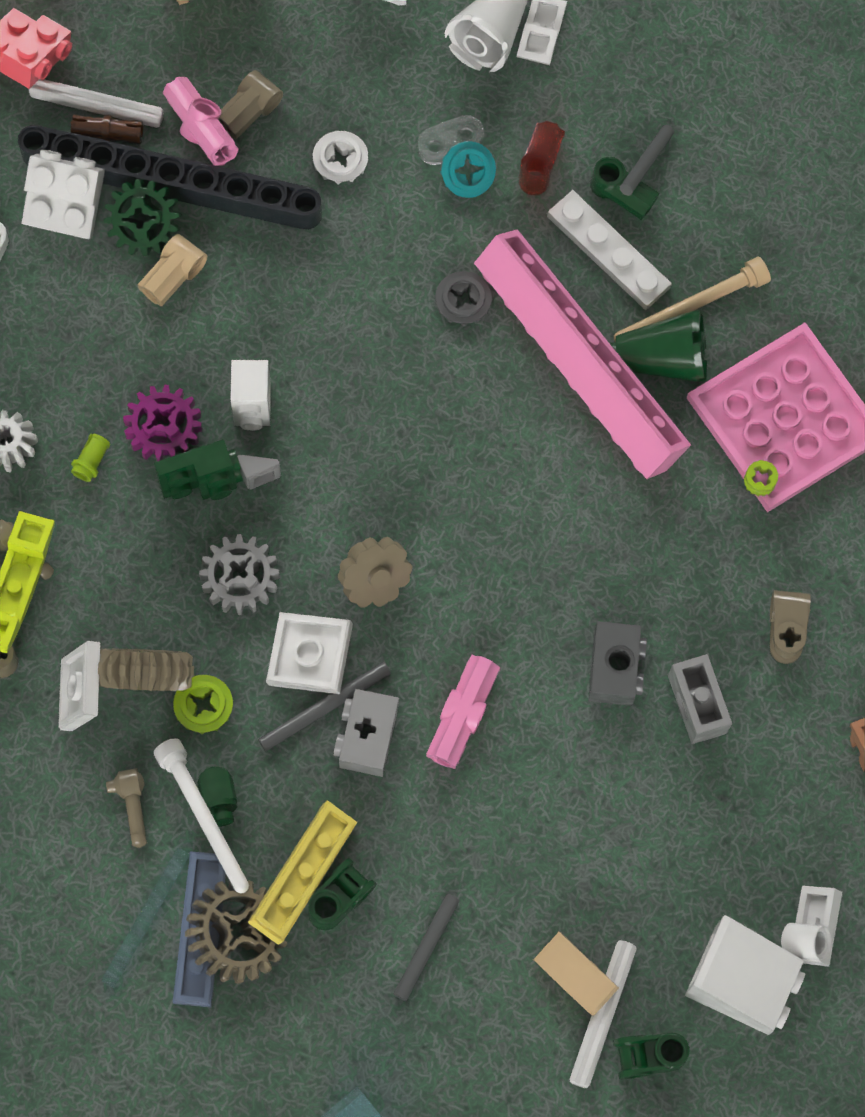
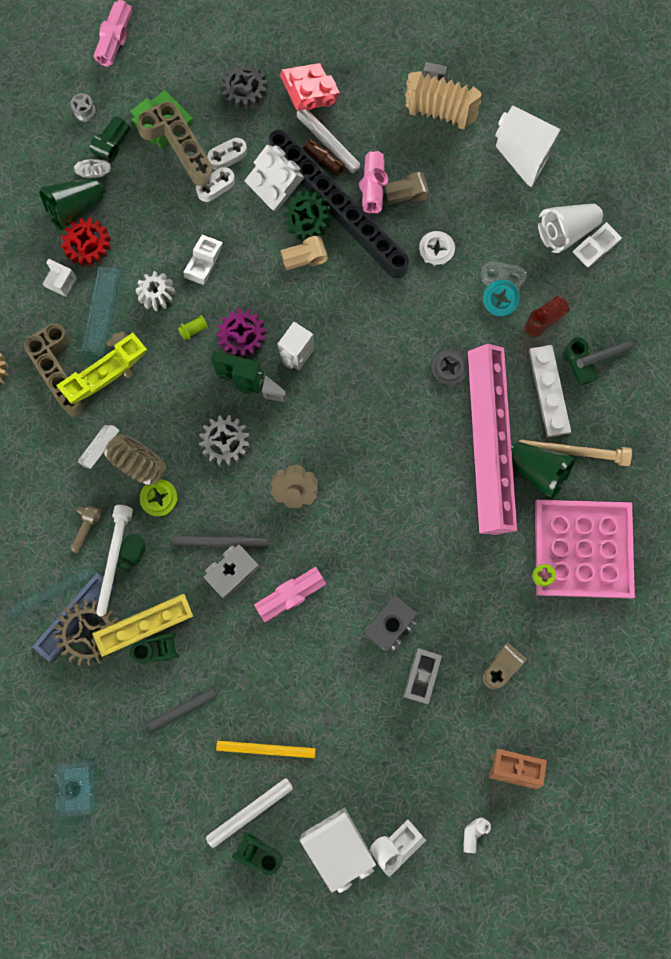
camera: 40 degrees right, 5 degrees up
(39, 361) = (203, 259): none -> white slope
(309, 653) = (232, 507): white tile -> none
(568, 923) = (265, 749): none -> yellow bar
(576, 973) = (248, 781): tan slope -> none

